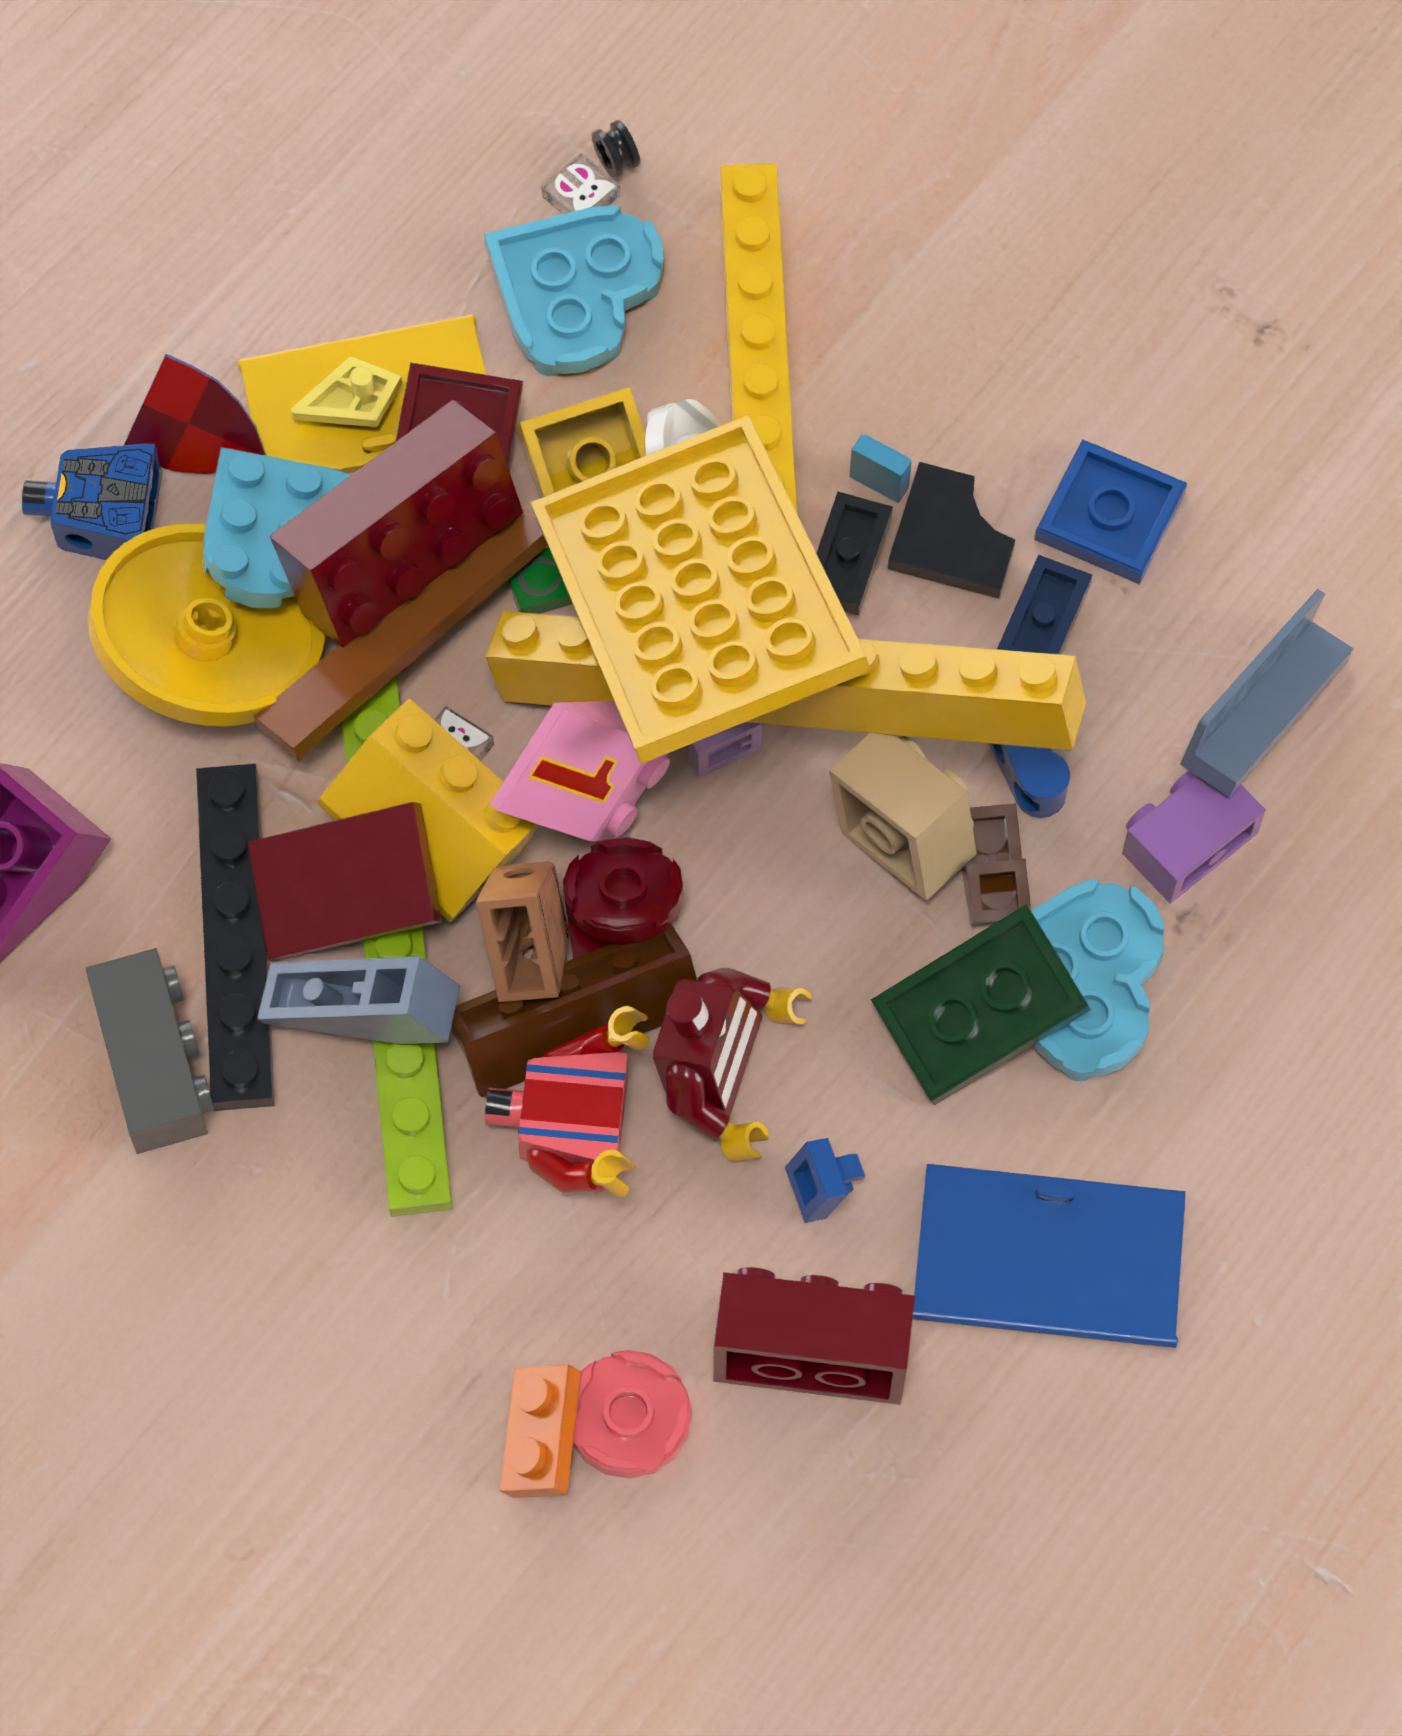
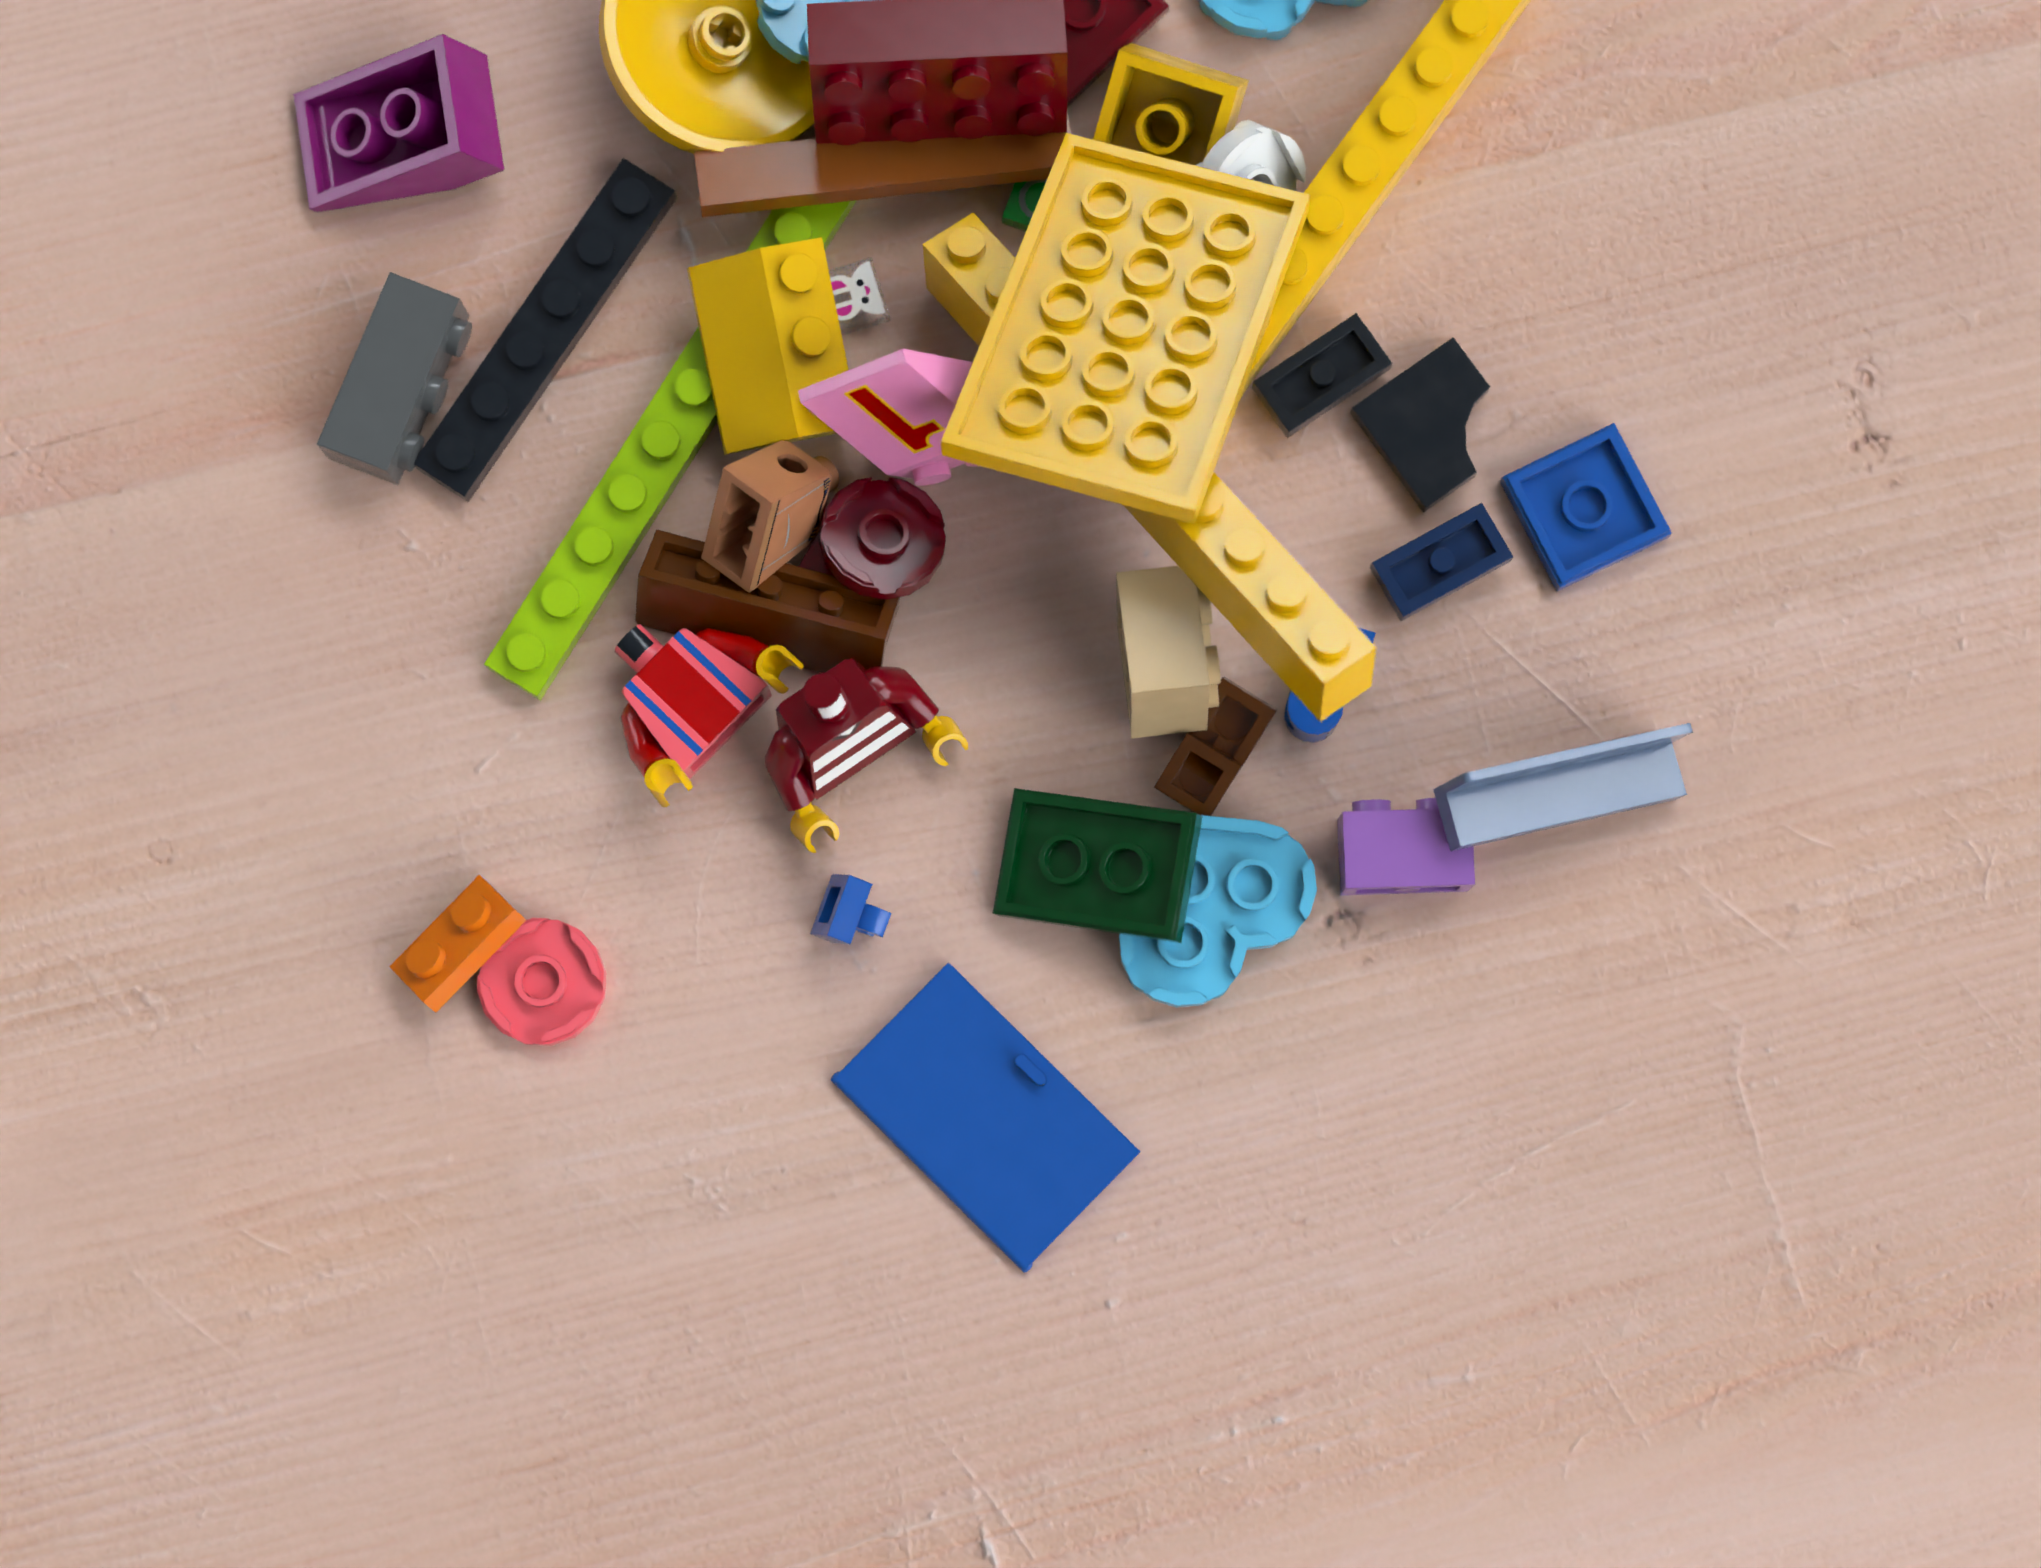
camera: 40 degrees right, 15 degrees up
(344, 881) = (656, 356): dark red tile -> none
(362, 998) = (586, 472): sand blue slope -> none
(813, 1336) = (723, 1039): dark red brick -> none
(880, 468) = (1413, 318): dark azure tile -> none

